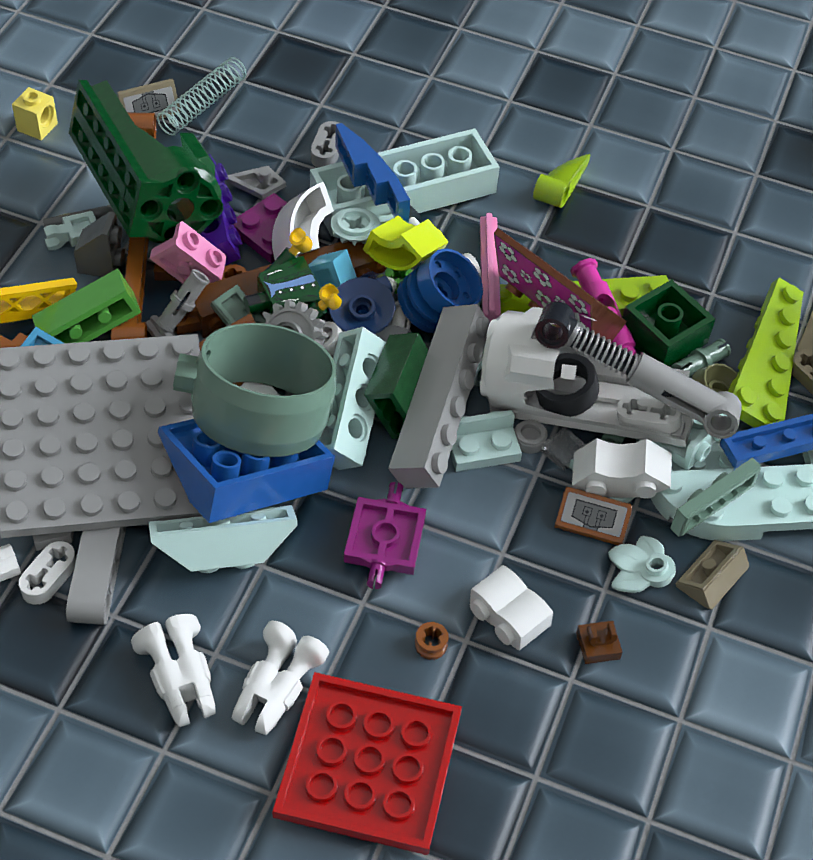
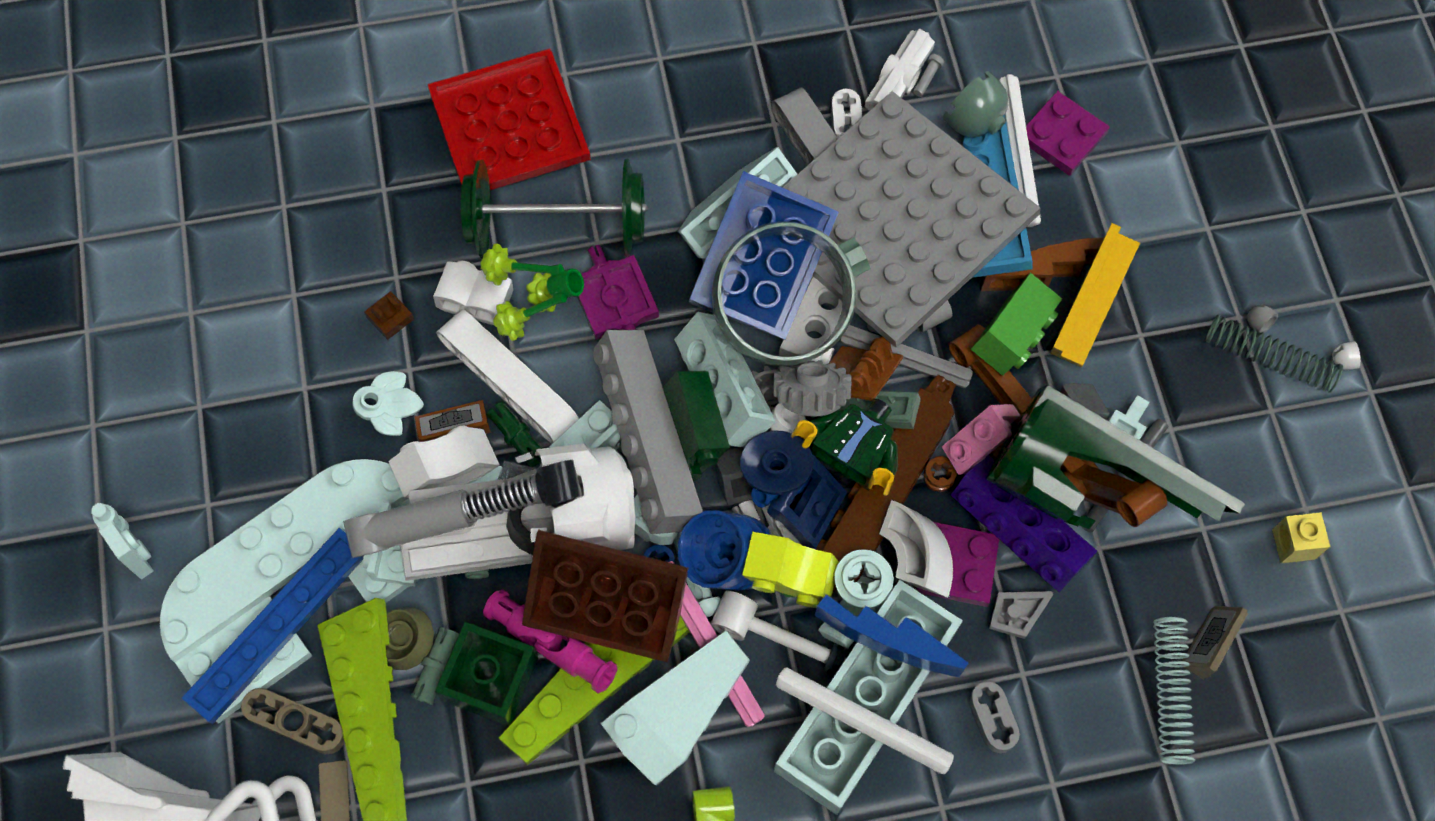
camera: 150 degrees right, 15 degrees up
(180, 679) = (682, 100): white piece -> none
(194, 284) = (946, 386): light grey pin -> none
(277, 688) = (615, 127): white piece -> none
(324, 568) = (477, 208): none -> dark green axle
(333, 268) = (843, 505): medium azure panel -> none
(426, 152) = (865, 720): none -> white axle
(435, 630) = (522, 227): dark orange bush -> none
(437, 518) = (543, 290): none -> lime plant
(524, 524) = (507, 376): none -> white beam
(543, 477) = (515, 432): none -> dark green pin
(555, 242) = (669, 715): none -> light aqua wedge
(714, 573) = (322, 436): dark tan slope -> none
(721, 492) = (336, 478): sand green plate -> none

